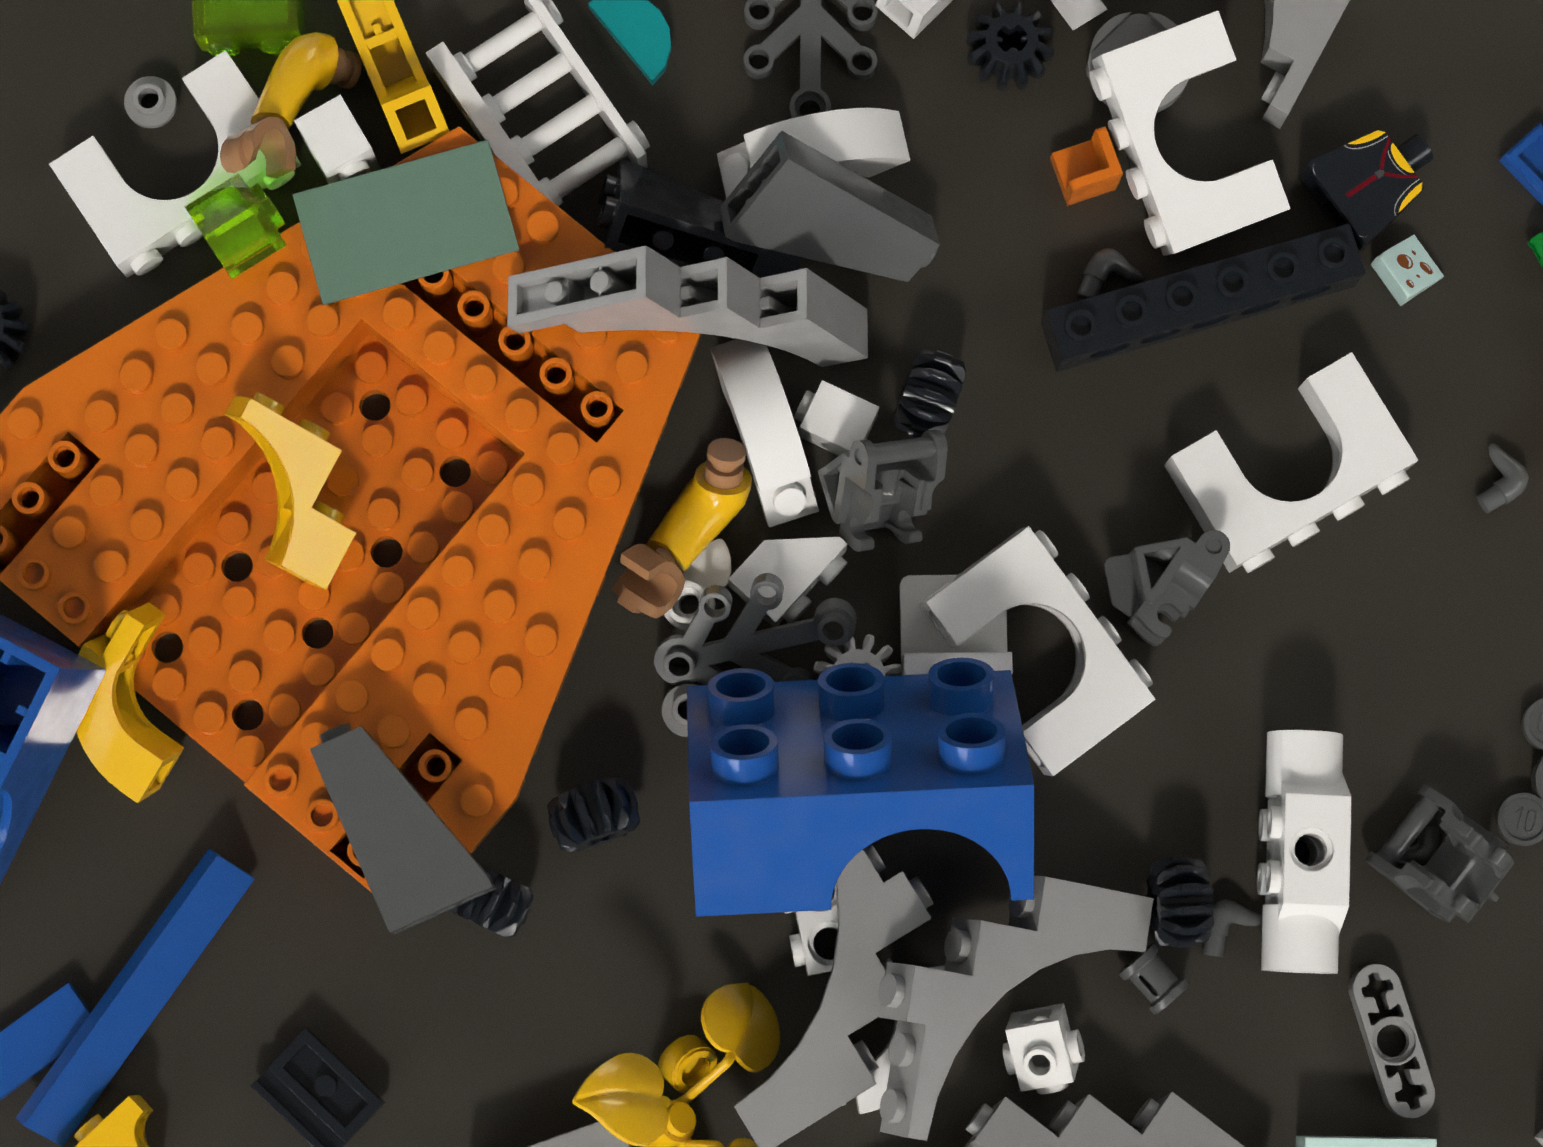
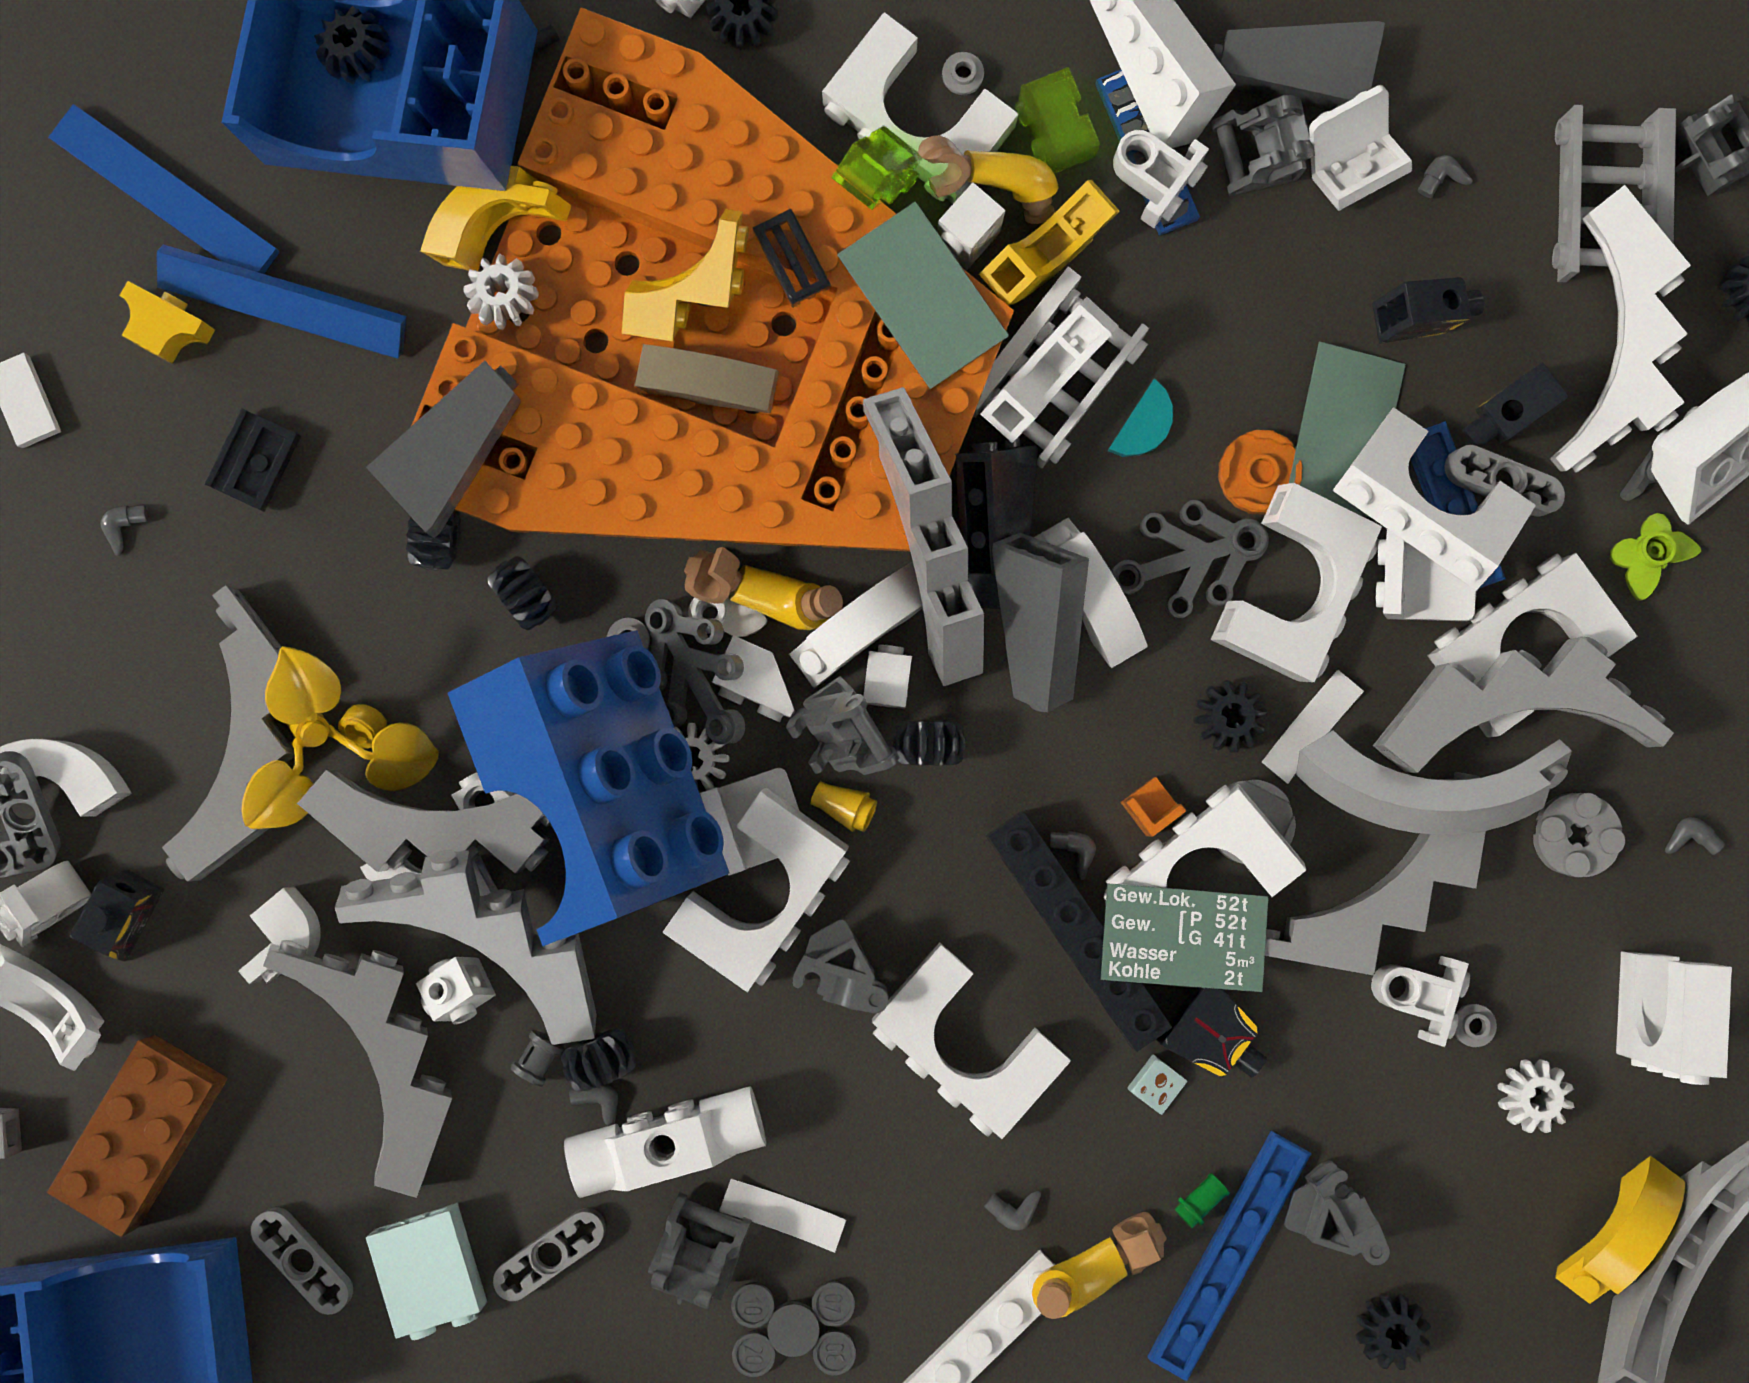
camera: 70 degrees right, 5 degrees up
(205, 721) = (501, 306): none -> white gear
(311, 377) = (808, 290): none -> black tile
(414, 509) = (706, 379): none -> dark tan slope
(538, 110) = (1049, 369): none -> white arch
(969, 519) = (847, 806): none -> yellow cone
(1250, 175) = (1184, 937): none -> sand green sticker
(1427, 749) = (783, 1214): none -> white sticker

